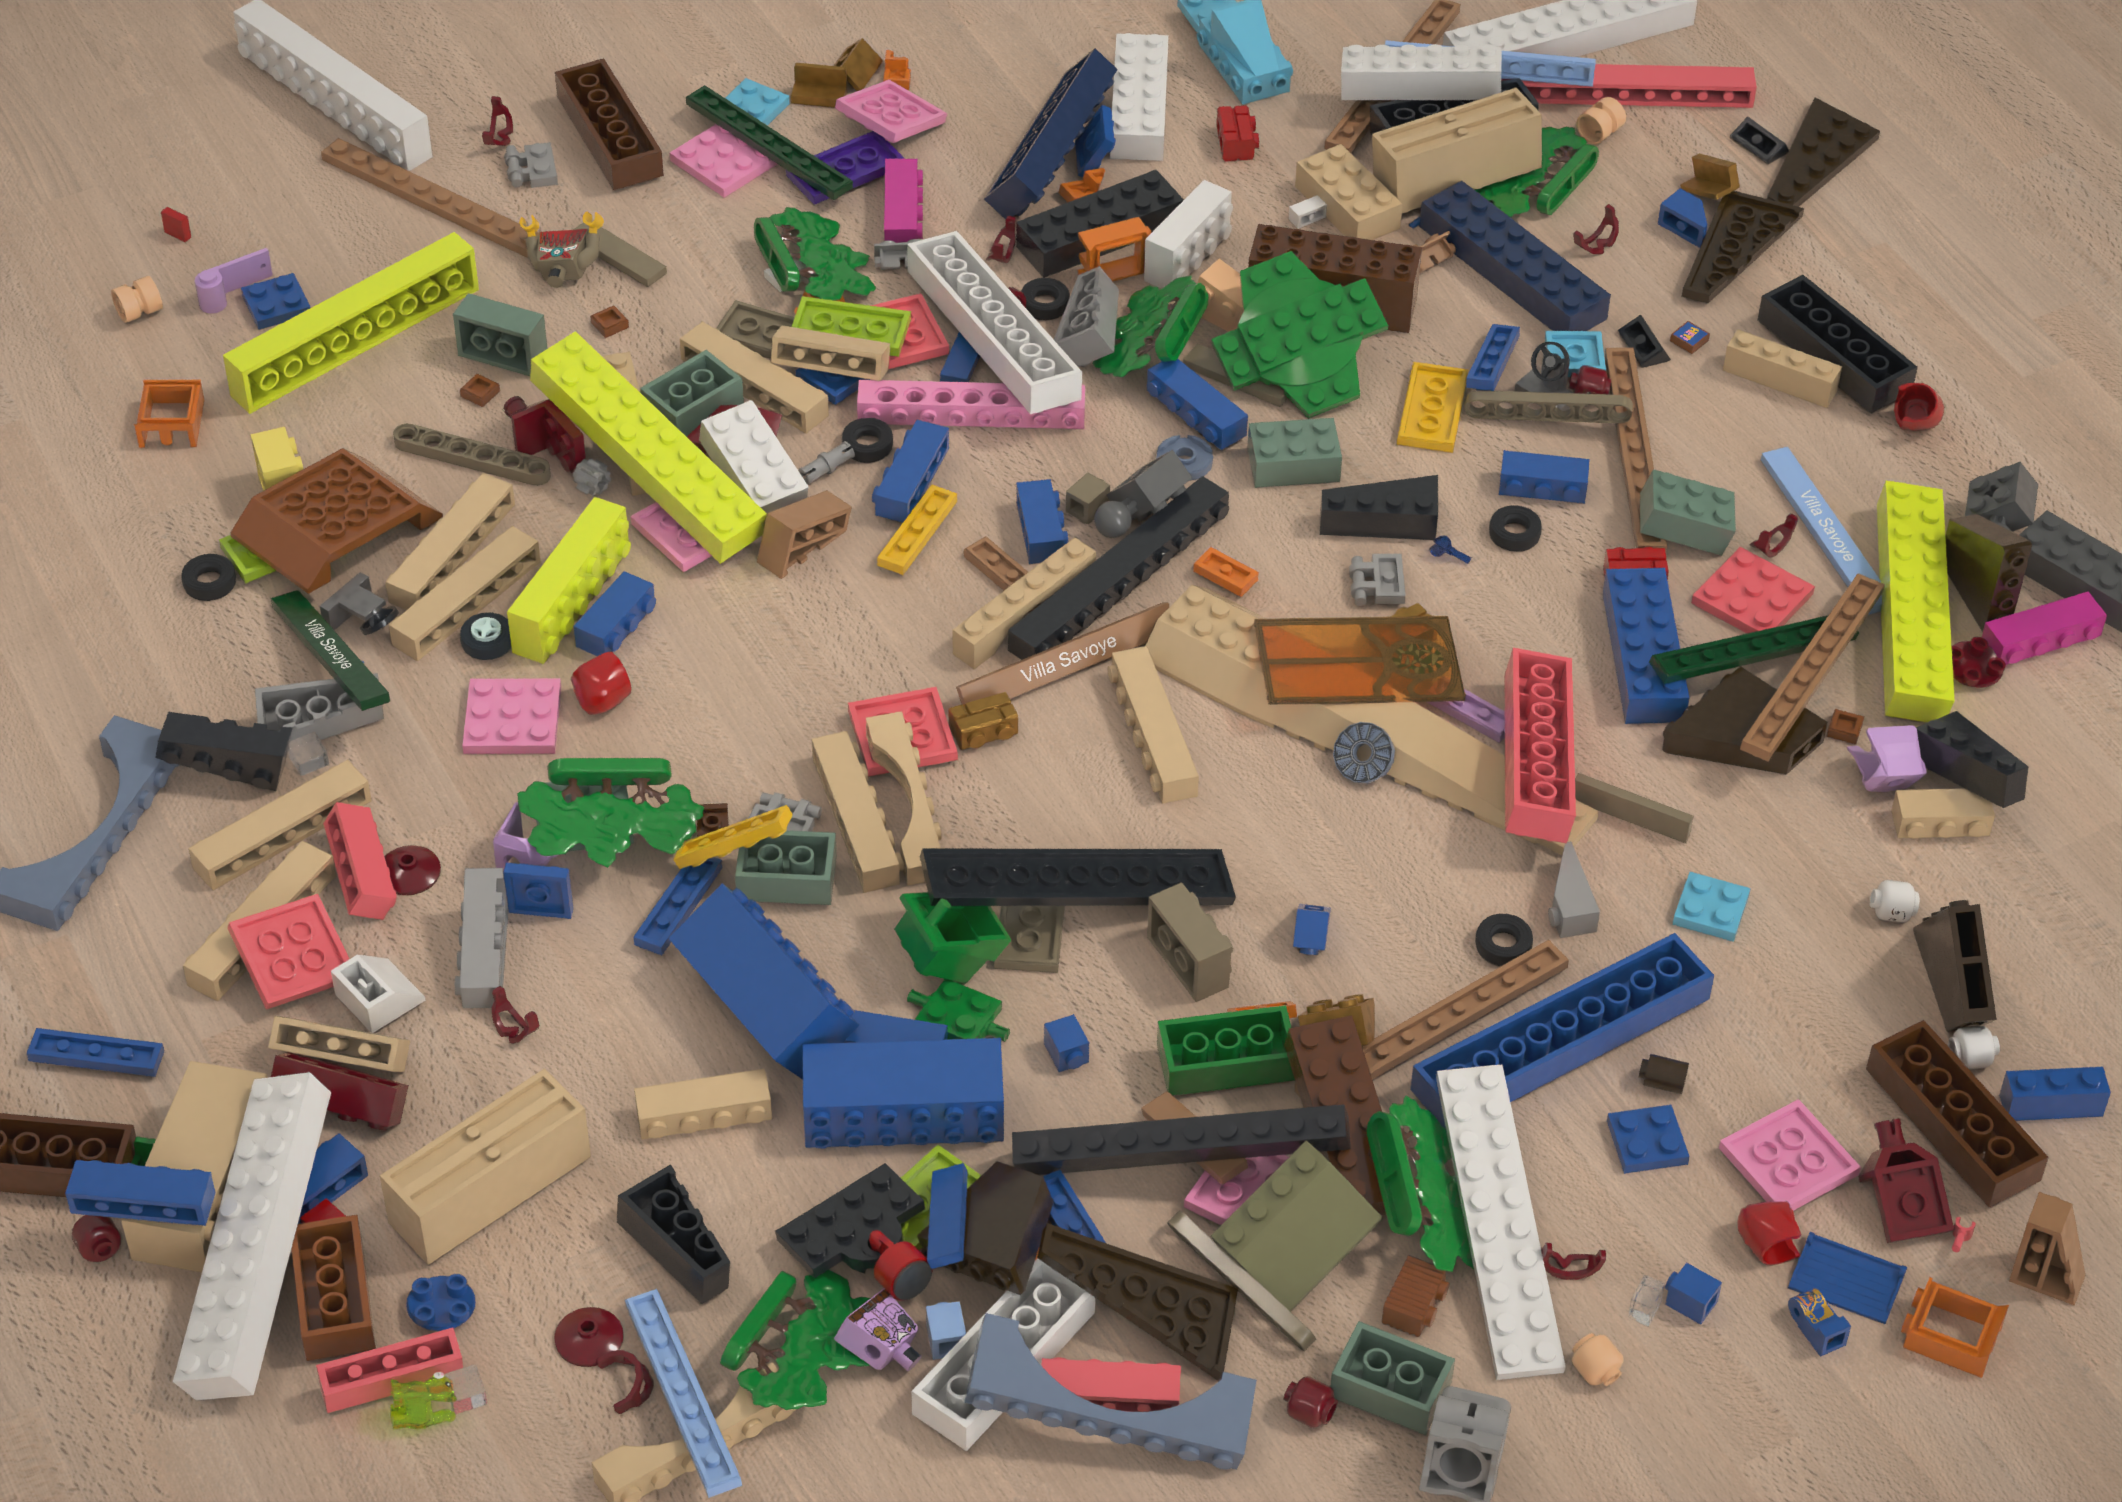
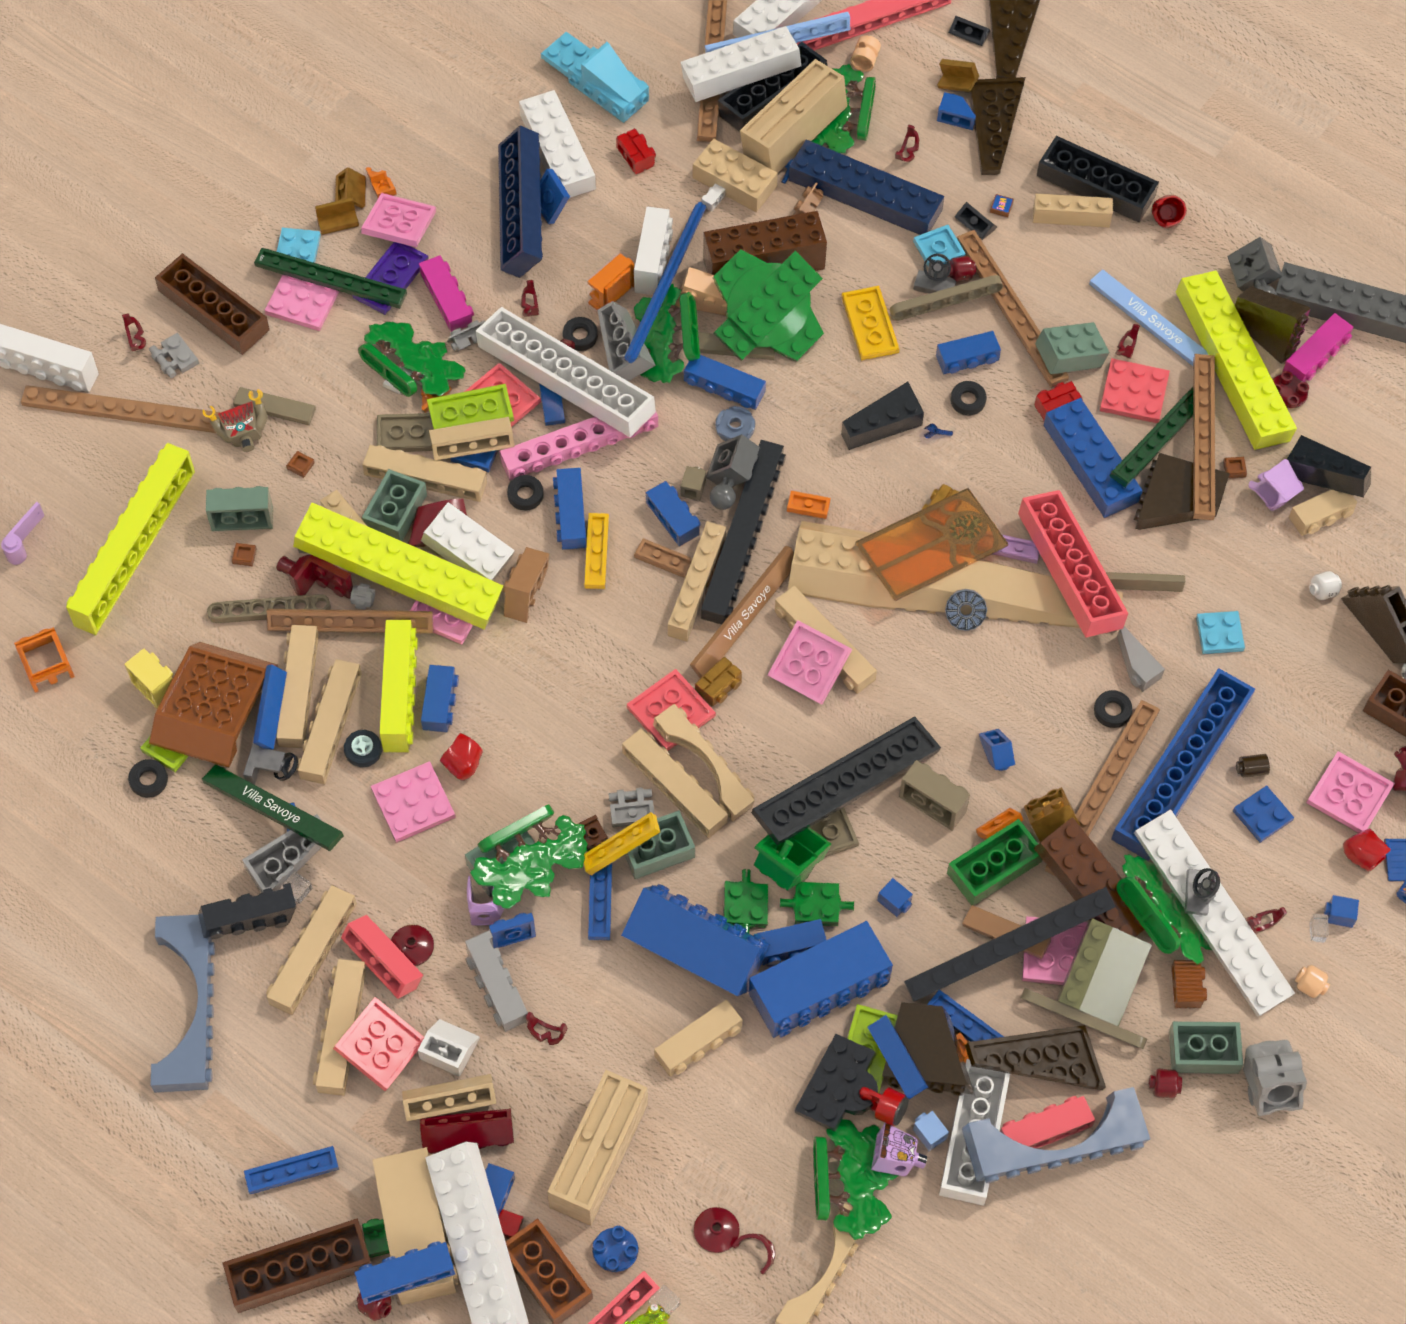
camera: 25 degrees left, 15 degrees up
(275, 300) = (61, 537): blue plate -> none
(397, 545) = (270, 707): none -> blue tile
(554, 493) = (346, 620): none -> medium nougat tile
(674, 1233) = (735, 1139): black wedge -> none
(683, 1393) = (802, 1247): light blue tile -> none
(826, 462) = (509, 521): light grey pin -> none
(866, 977) = (746, 902): none -> green plate
(1052, 238) = (590, 251): black brick -> none
(1090, 184) = (558, 234): orange slope -> none
(1114, 736) = (809, 662): none -> bright pink plate
(1174, 272) = (665, 283): none -> blue axle
(1294, 452) = (805, 395): sand green brick -> none
(1387, 579) = (910, 468): light grey plate -> none
(1485, 1173) = (1200, 890): none -> flat silver piece
(1492, 357) = (892, 272): blue plate -> none

